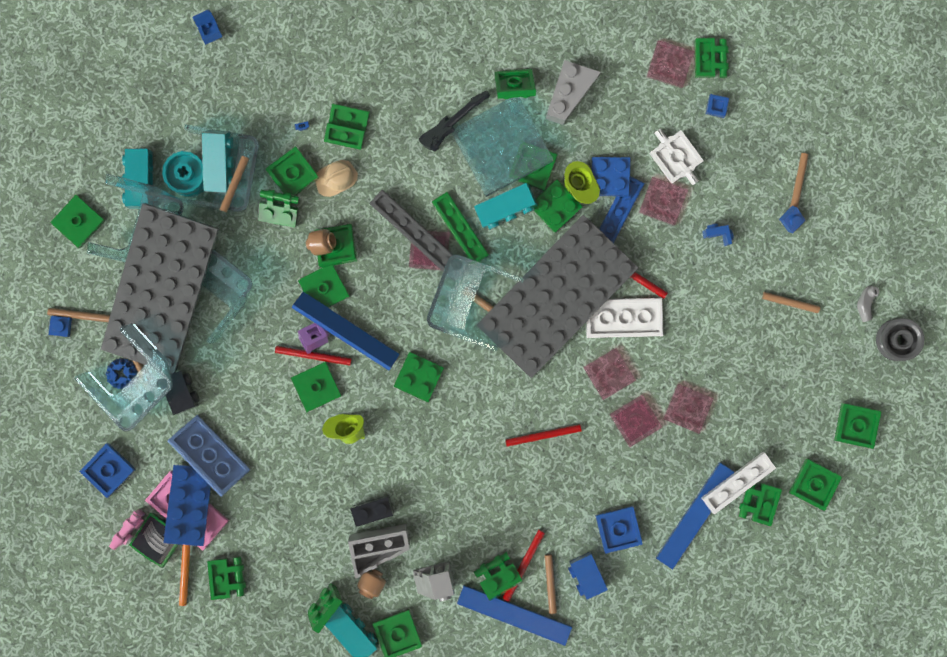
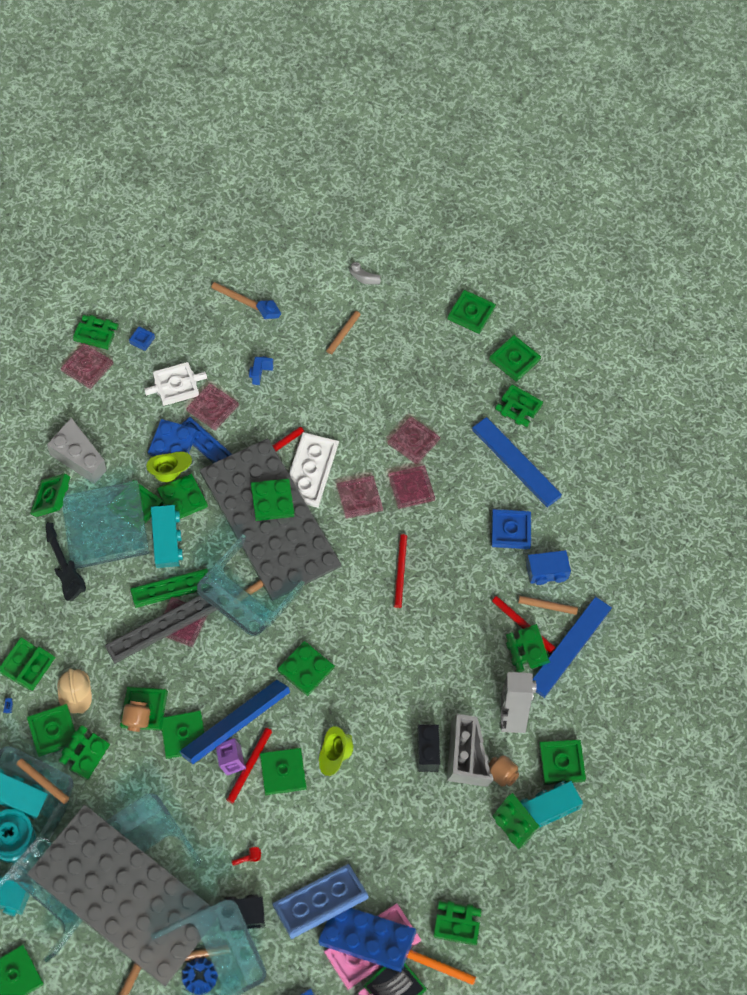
camera: 75 degrees left, 25 degrees down
(233, 385) = (254, 856): none -> red hand
(572, 294) = (272, 499): none -> green plate
(738, 483) = (495, 415): white plate -> none
(912, 339) = (402, 267): dark grey wheel -> none

